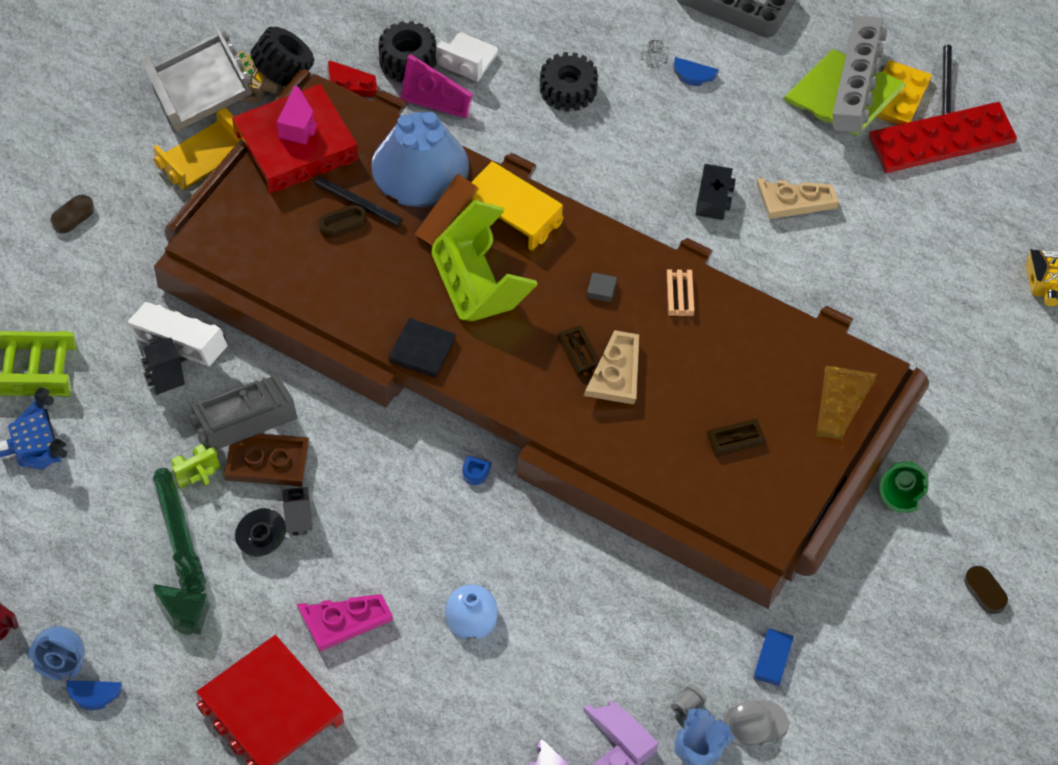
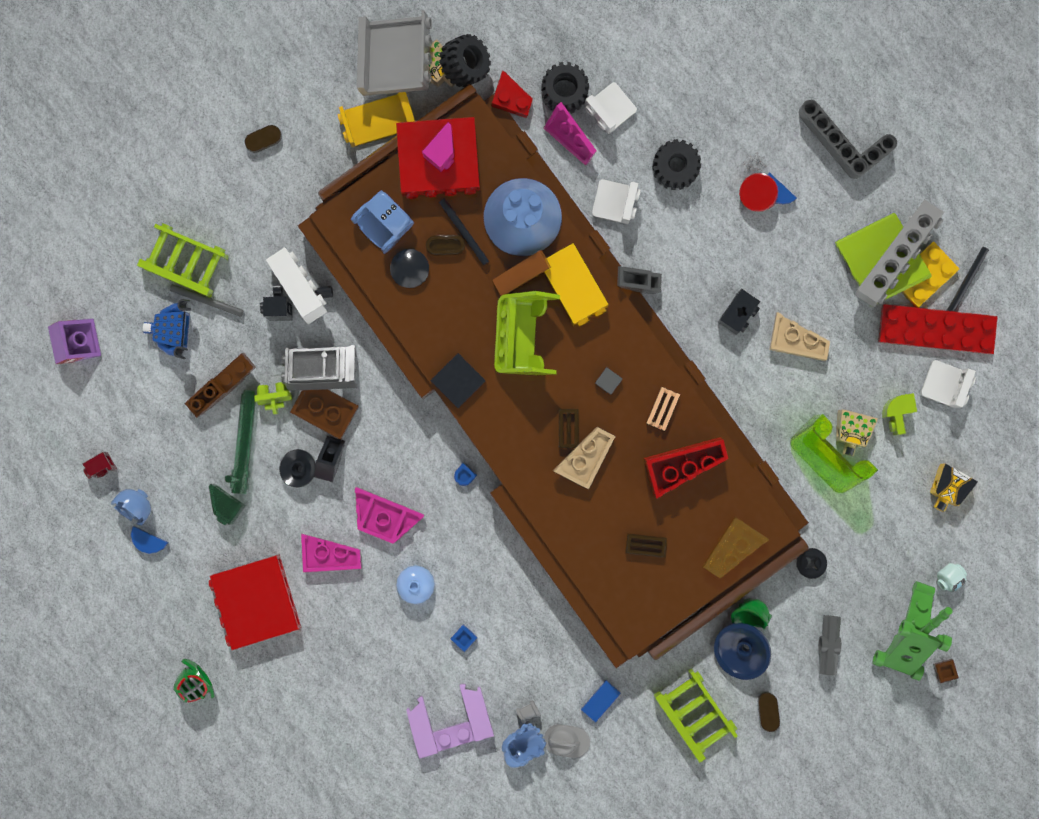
camera: 25 degrees right, 30 degrees up
(86, 397) = (206, 300): none -> dark grey bar
(124, 478) = (220, 386): none -> reddish brown slope
(257, 218) = (382, 221): none -> medium blue piece
(310, 256) = (409, 268): none -> black dish
(395, 549) = (383, 517): none -> dark pink wing
(520, 136) = (615, 201): none -> white bracket
(562, 651) = (463, 638): none -> blue tile
(586, 190) = (639, 280): none -> dark grey slope
(673, 75) = (758, 192): none -> red tile
(730, 334) = (677, 466): none -> red wedge
(889, 645) = (677, 715): none -> lime fence
(896, 523) = (738, 660): none -> dark blue dish
(898, 289) = (825, 460): none -> clear neon green windscreen
(908, 258) = (853, 430): none -> tan torso
(932, 405) = (820, 563): none -> black gear
(947, 224) = (896, 408): none -> lime brick
(987, 181) = (948, 384): none -> white bracket
(1014, 486) = (829, 645): none -> dark grey piece

